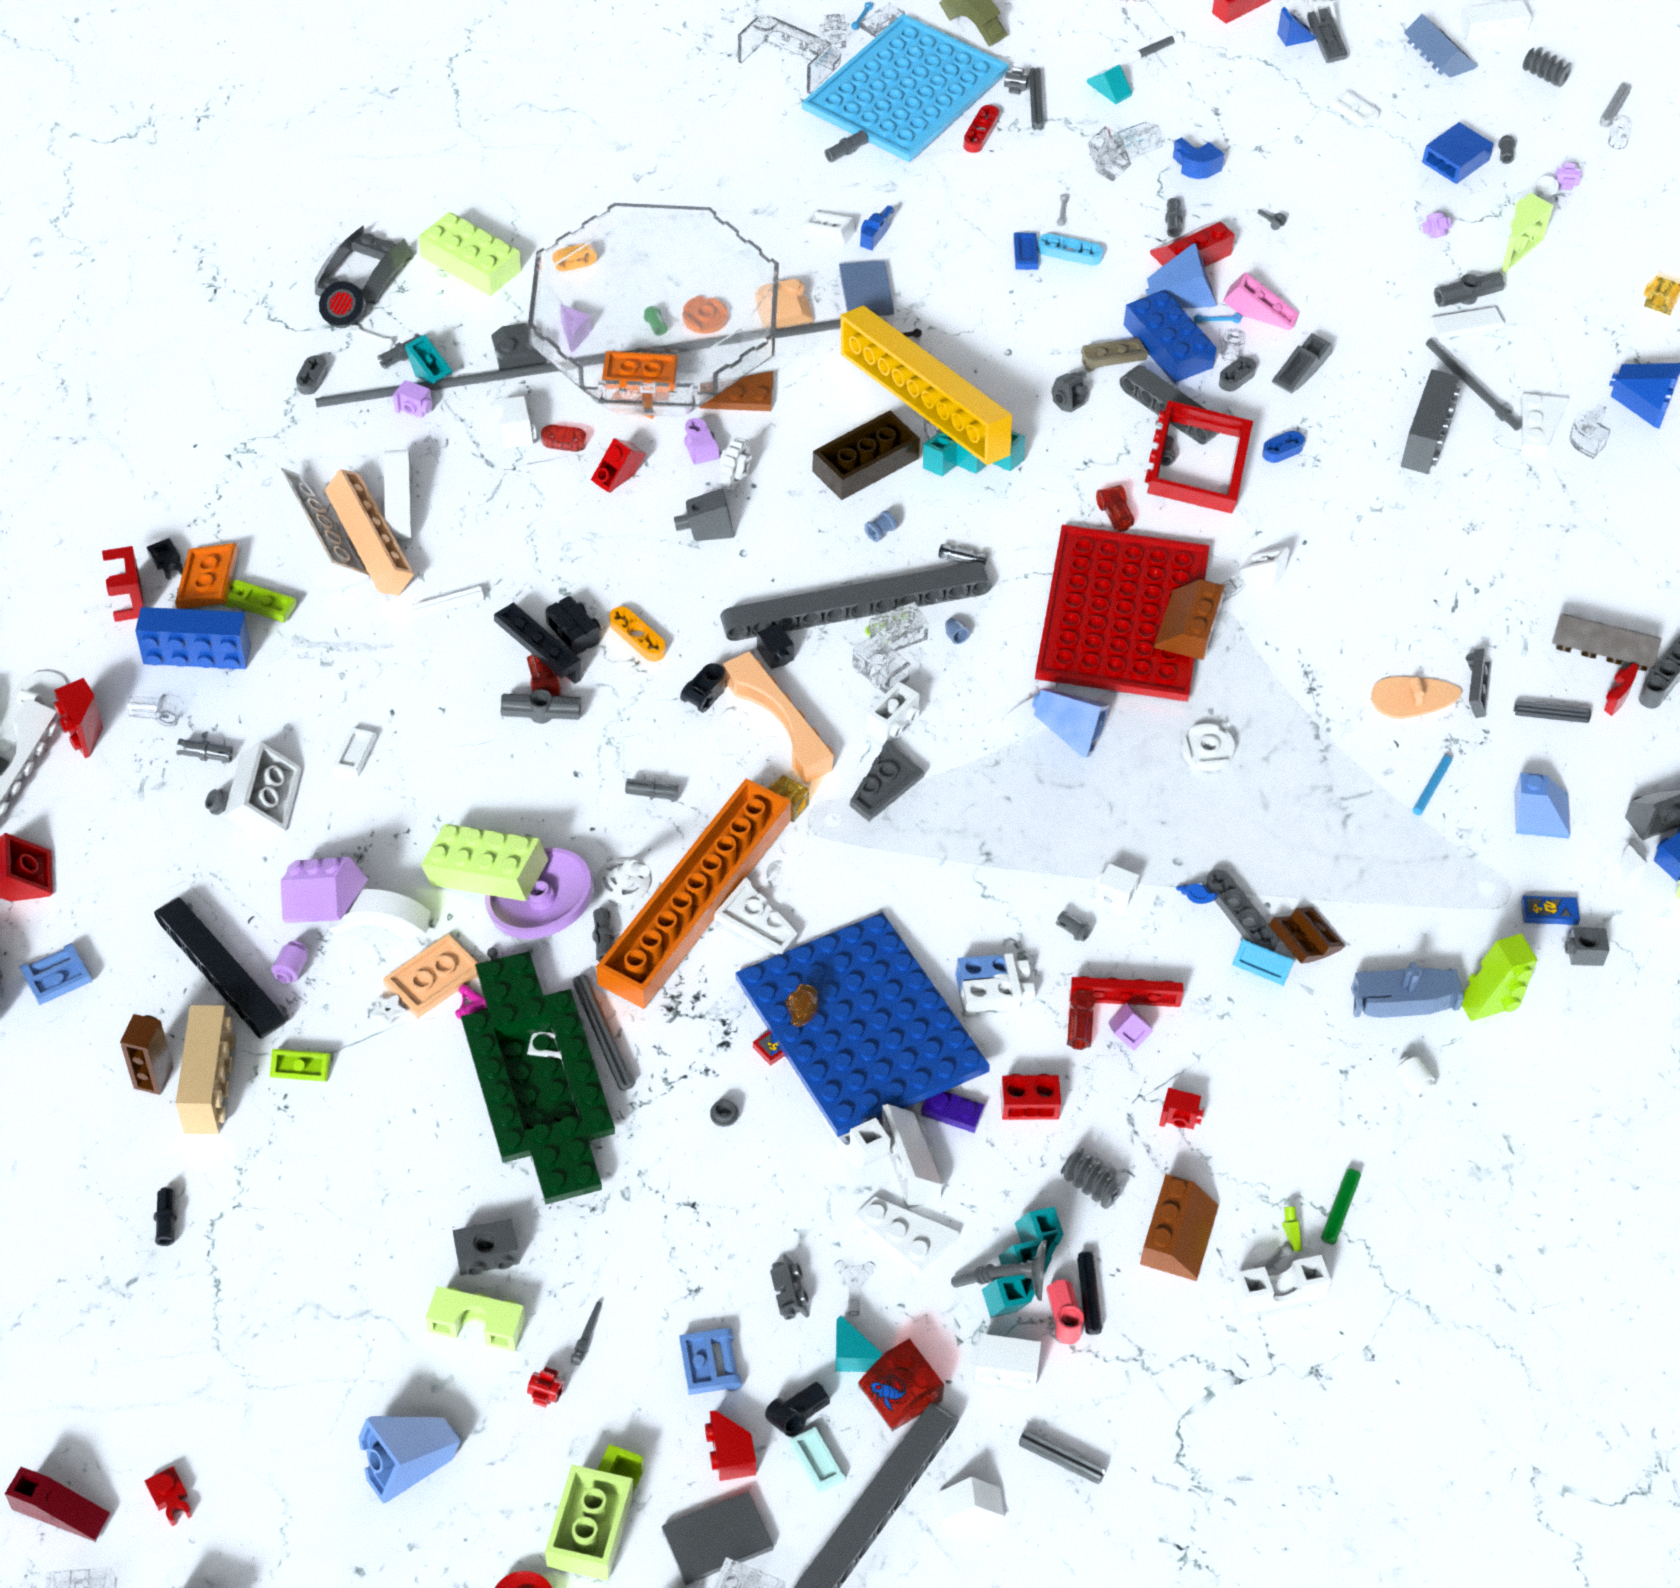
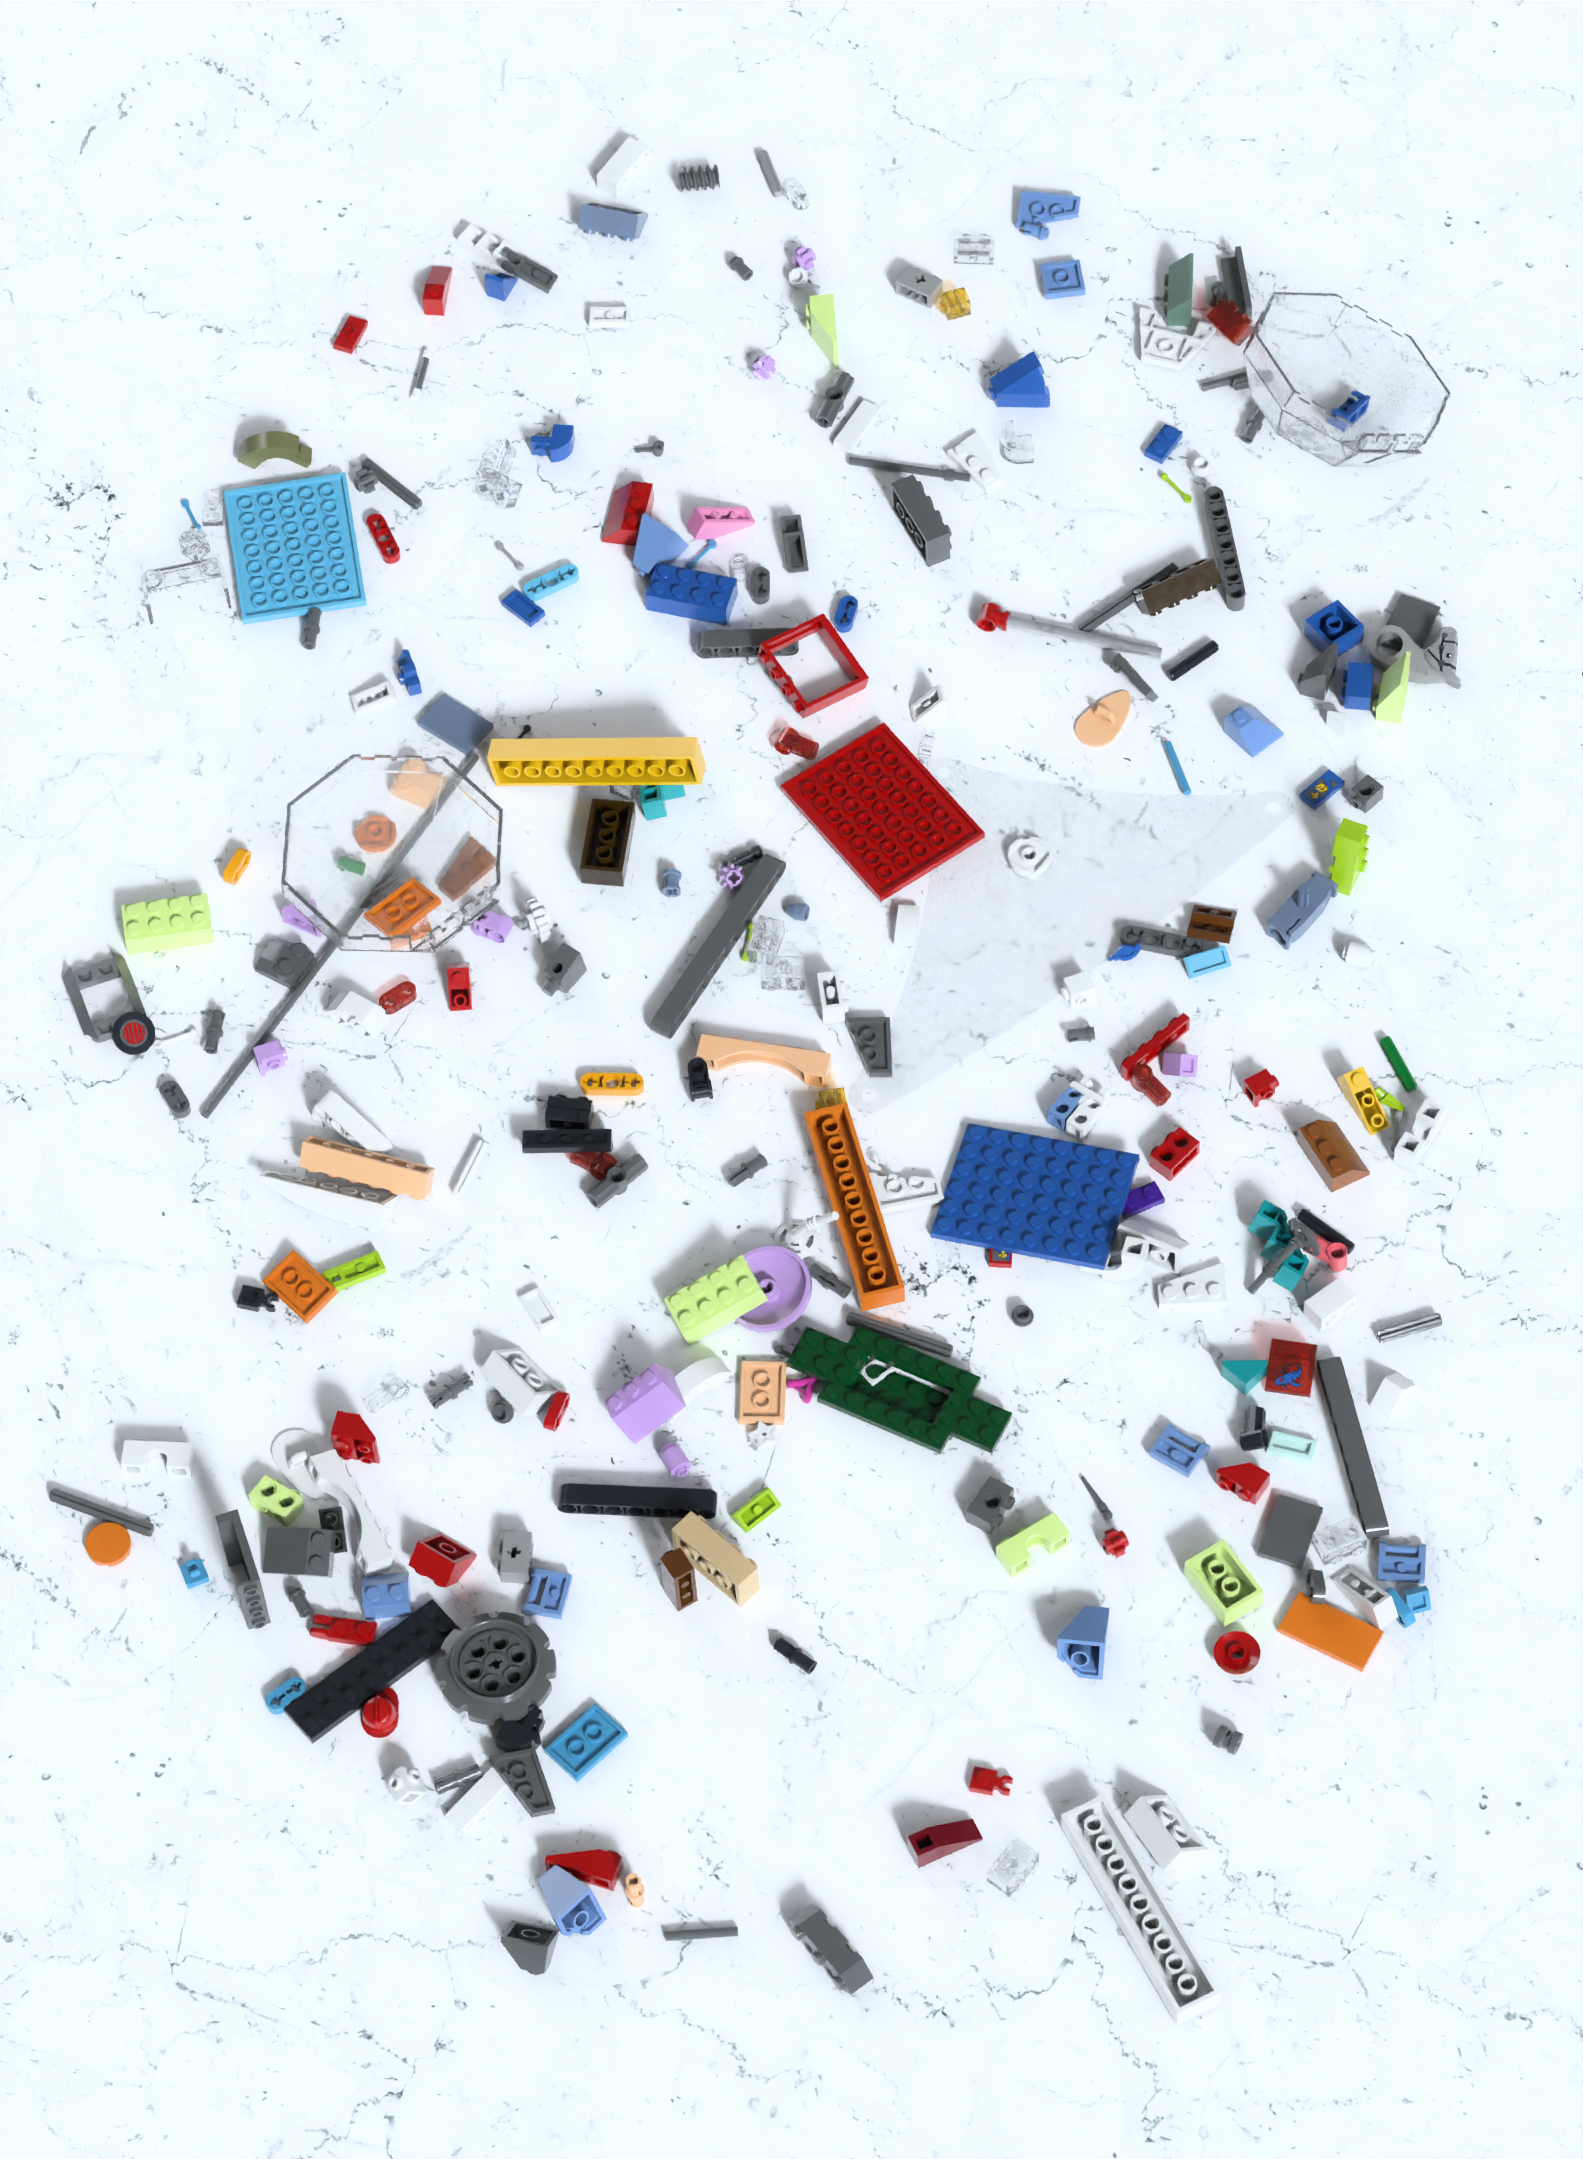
camera: 40 degrees left, 5 degrees up
(71, 921) = (519, 1568): none -> light grey brick
(125, 583) = (266, 1330): red panel -> none
(193, 638) = (355, 1330): blue brick -> none
(257, 838) = (556, 1410): none -> red beam
(426, 360) = (248, 1023): teal slope -> none
(622, 1463) = (1200, 1541): lime panel -> none
(775, 646) = (707, 1017): black brick -> none
(787, 1277) = (1181, 1378): dark grey hinge -> none
(802, 1005) = (1002, 1214): clear orange rock -> none
(926, 557) = (733, 880): none -> lavender gear
(1069, 391) = (678, 687): dark grey hand -> none
(1071, 718) = (940, 906): slope -> none
(1092, 1179) = (1258, 1166): dark grey piece -> none
(1111, 84) = (427, 430): teal slope -> none
(1113, 353) = (669, 636): dark tan hinge -> none
(1174, 217) = (590, 501): dark grey pin -> none
(1190, 619) = (934, 781): dark orange slope -> none
(1265, 1209) = (1363, 1100): none -> yellow slope
(1408, 541) = (992, 617): none -> flat silver piece
(1457, 153) = (714, 297): blue brick -> none
(1533, 617) = (1122, 602): none -> dark grey axle
(1619, 693) = (1216, 610): red slope -> none
(1645, 260) = (919, 286): none -> light grey brick

